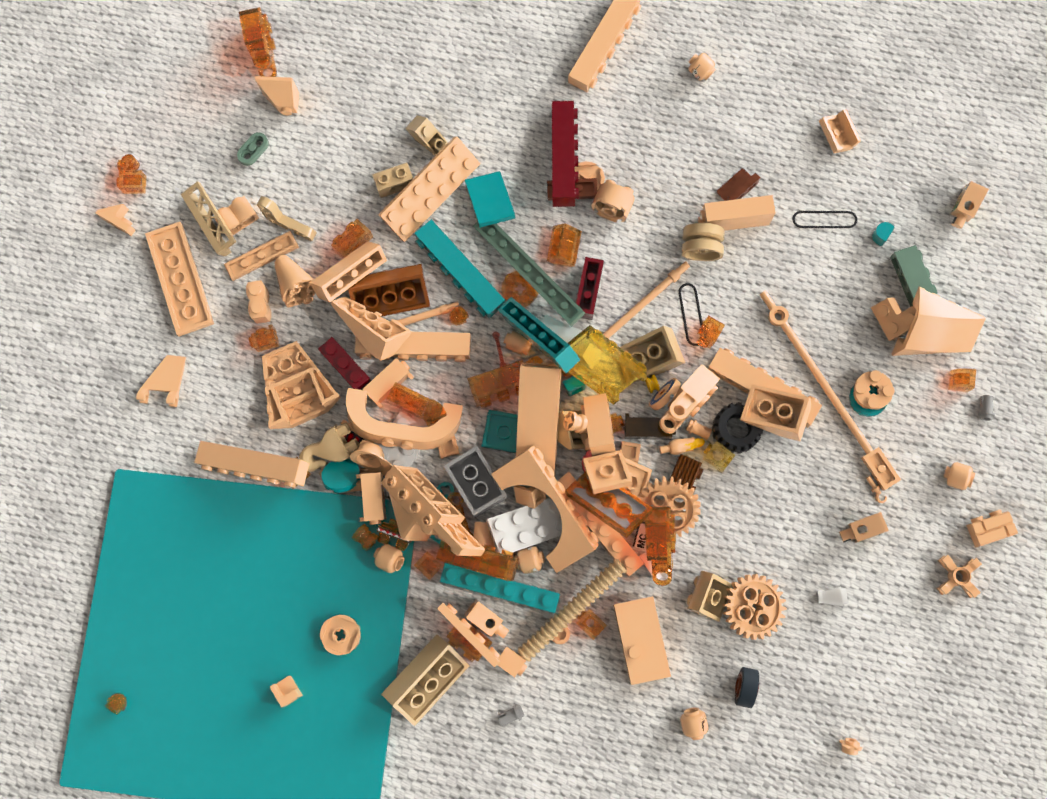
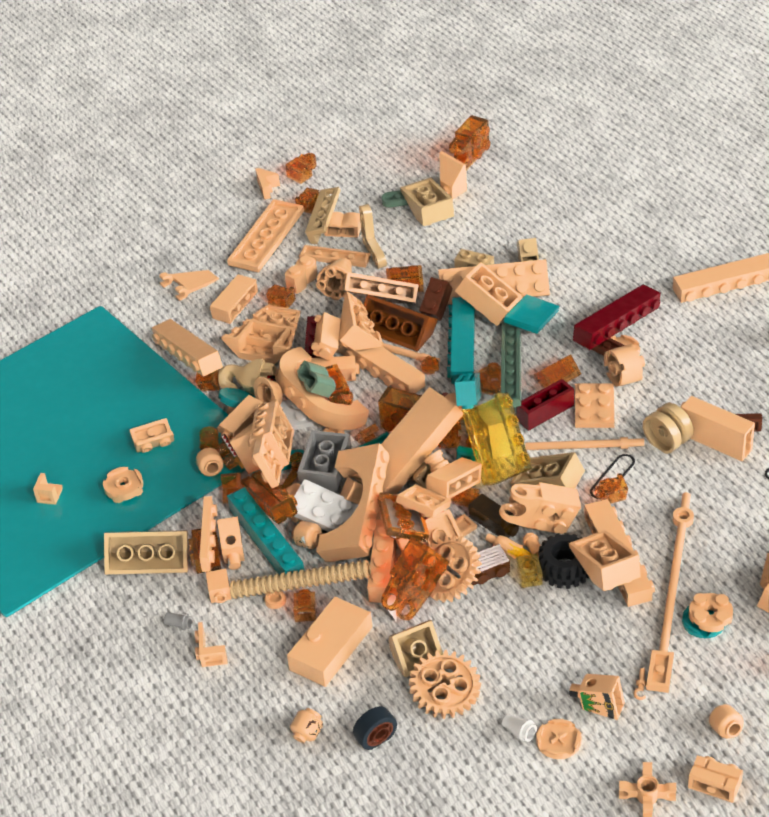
camera: 40 degrees right, 35 degrees down
(177, 210) = (308, 199): none -> clear orange brick
(226, 372) = (233, 298): none -> light nougat brick
(285, 136) = (428, 201): none -> tan slope
(315, 571) = (152, 435): none -> light nougat bracket
(362, 362) = (326, 336): none -> light nougat brick
(403, 246) = (436, 298): none -> copper brick
(403, 417) = (316, 379): none -> sand green brick
(445, 210) = (488, 294): none -> light nougat brick
(477, 425) = (367, 434): none -> clear orange plate
(570, 722) = (208, 655): none -> light nougat bracket
(619, 254) = (594, 405): none -> light nougat plate
(863, 581) = (558, 739): none -> light nougat tile

